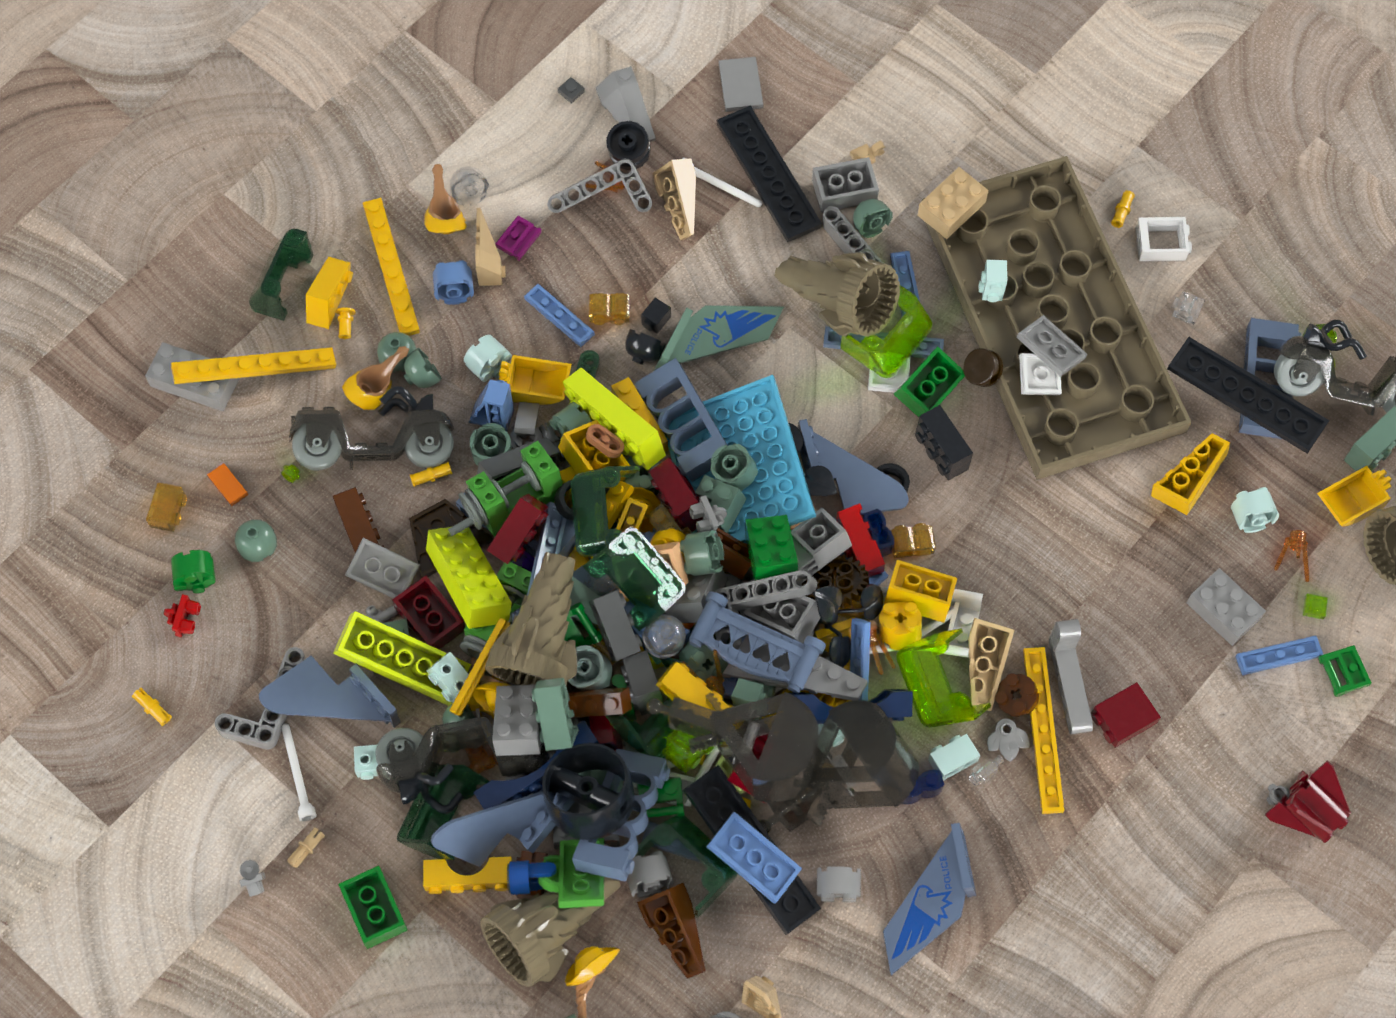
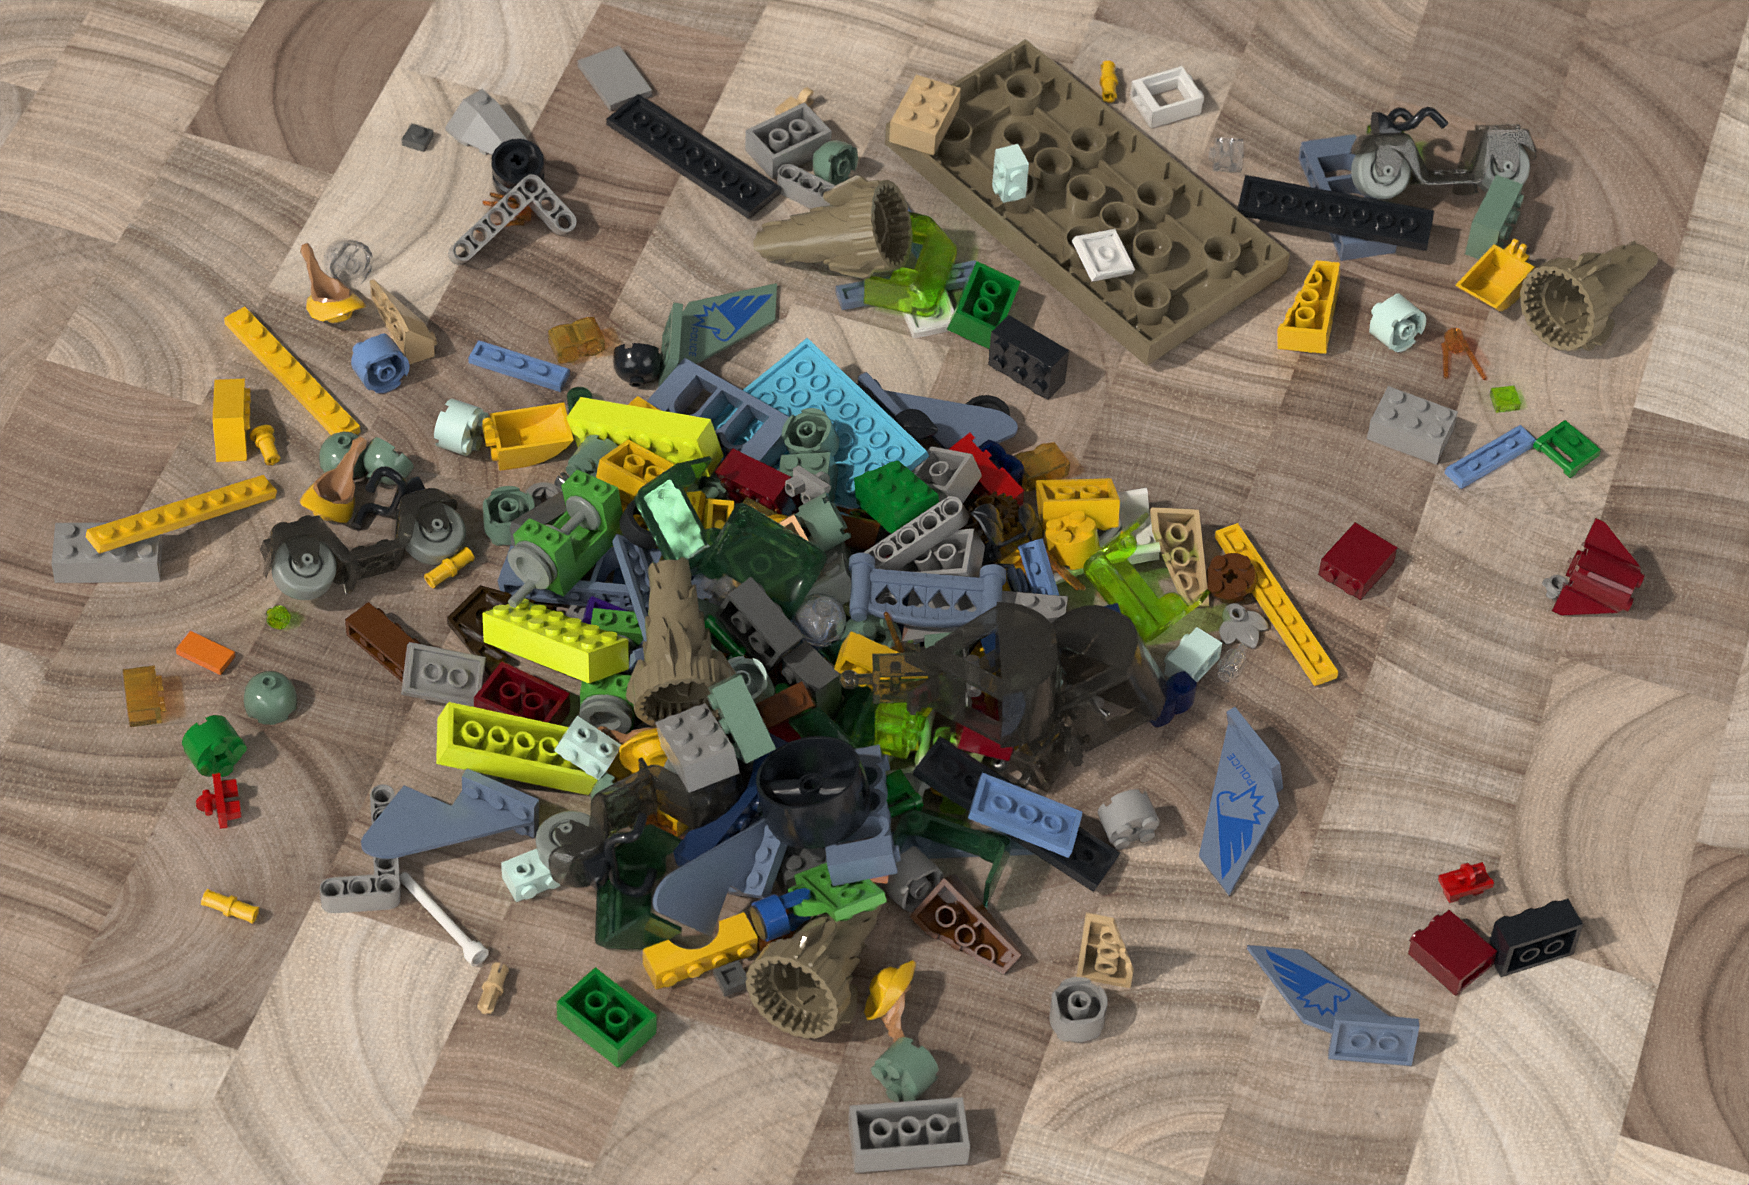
camera: 25 degrees left, 15 degrees down
(252, 877) = (448, 1036): light grey hips -> none
(289, 251) = (158, 423): clear green windscreen -> none
(477, 671) = (619, 723): yellow axle -> none
(480, 905) = (730, 978): none -> dark grey plate
(494, 405) = (491, 467): medium blue wedge -> none
(518, 238) = (432, 300): magenta plate -> none
(518, 529) = (598, 567): dark red brick -> none
(526, 418) = (536, 476): light grey tile -> none
(605, 442) = (651, 453): nougat plate -> none
(655, 315) = (635, 329): black brick -> none
(677, 185) = (597, 199): tan wedge -> none
(727, 187) = (595, 176): white piece -> none
(983, 367) = (1037, 267): dark brown head -> none
(1051, 345) = (1103, 221): light grey tile -> none
(1062, 646) = (1274, 539): light grey beam -> none

